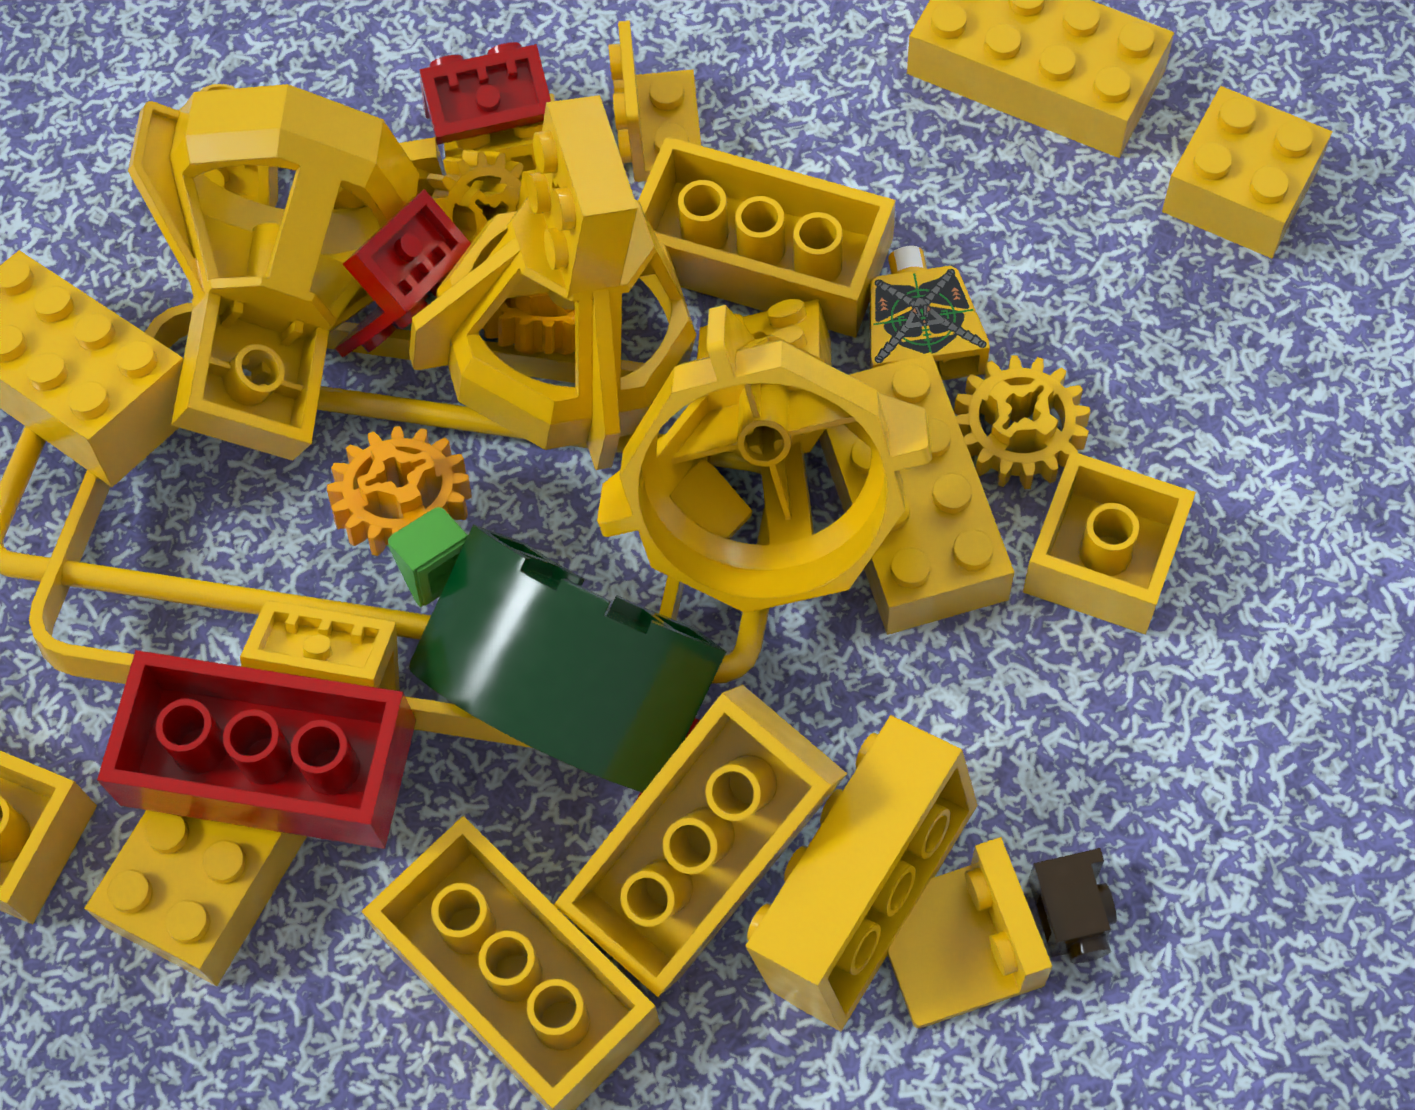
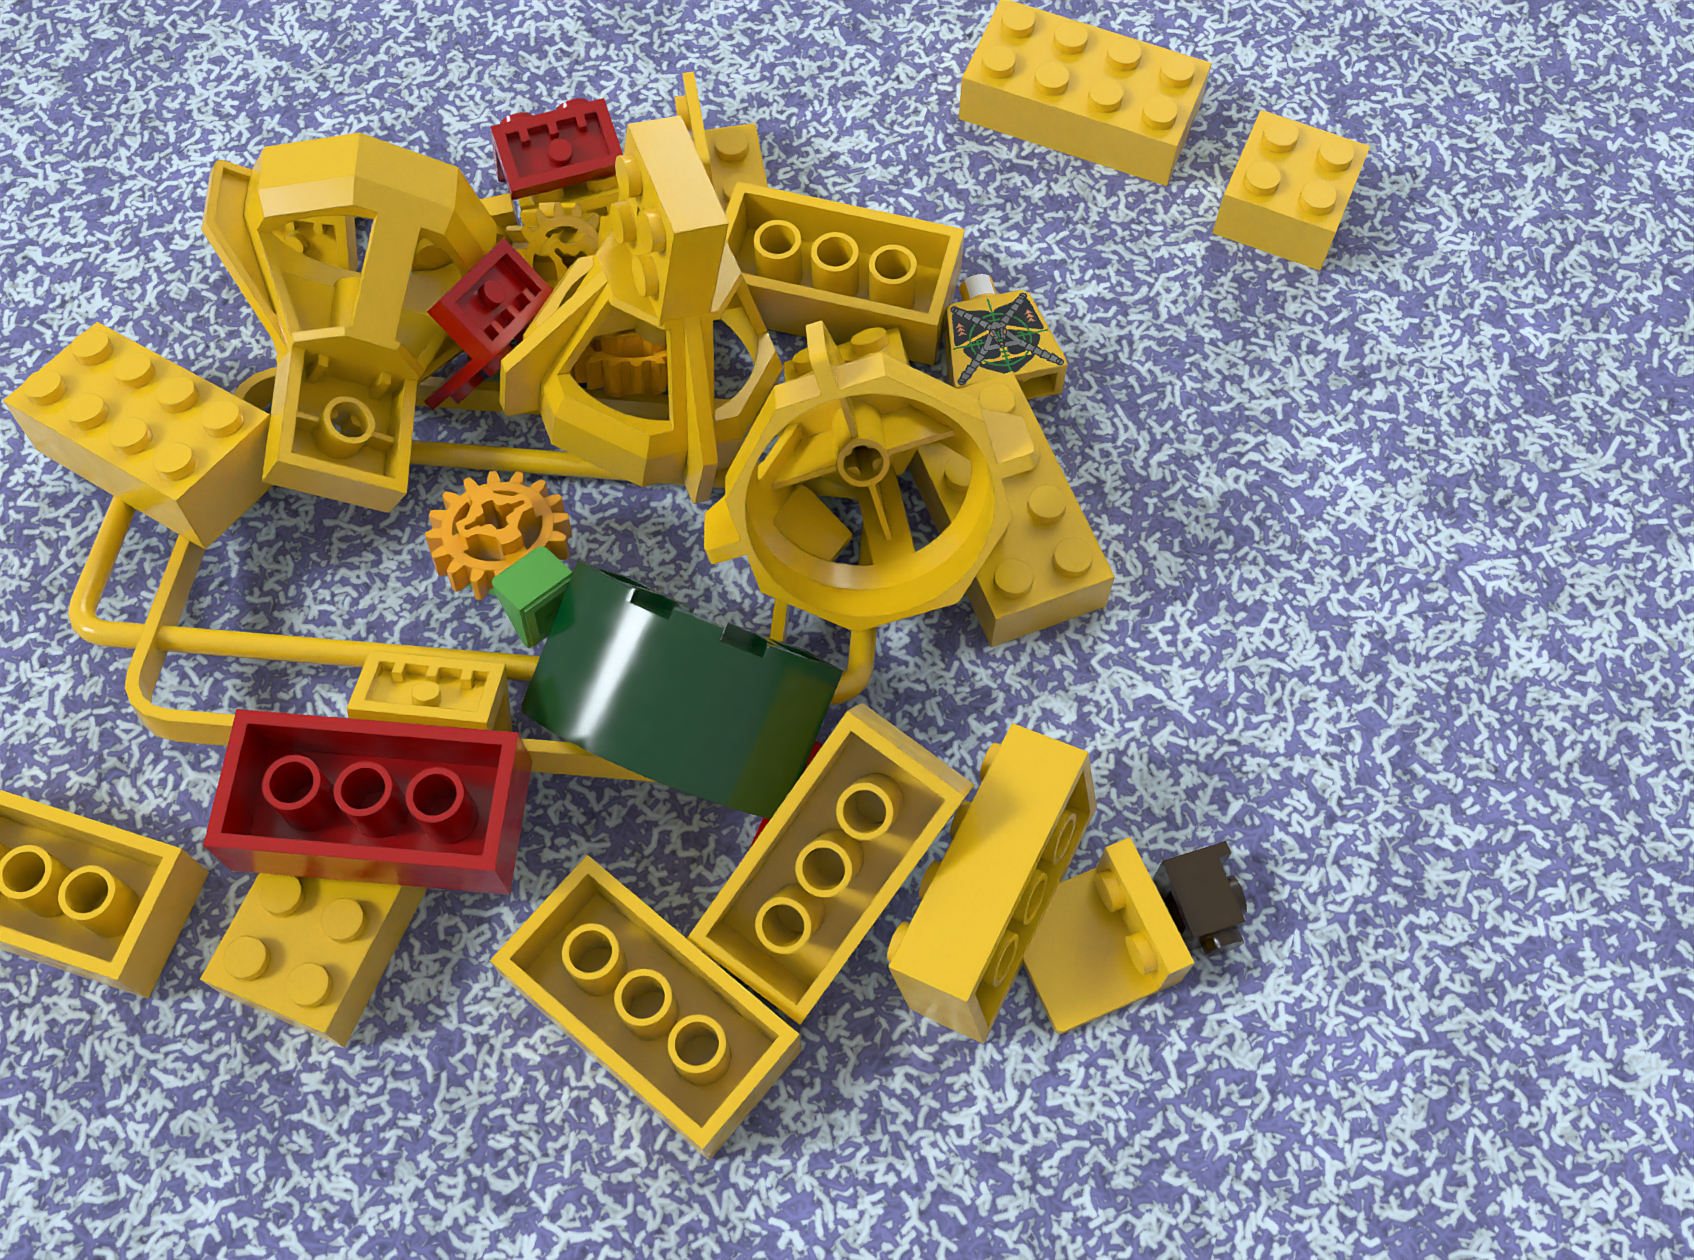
camera: 10 degrees left, 0 degrees up
(1028, 444) = (1115, 454): yellow gear -> none
(1108, 542) = (1201, 543): yellow brick -> none

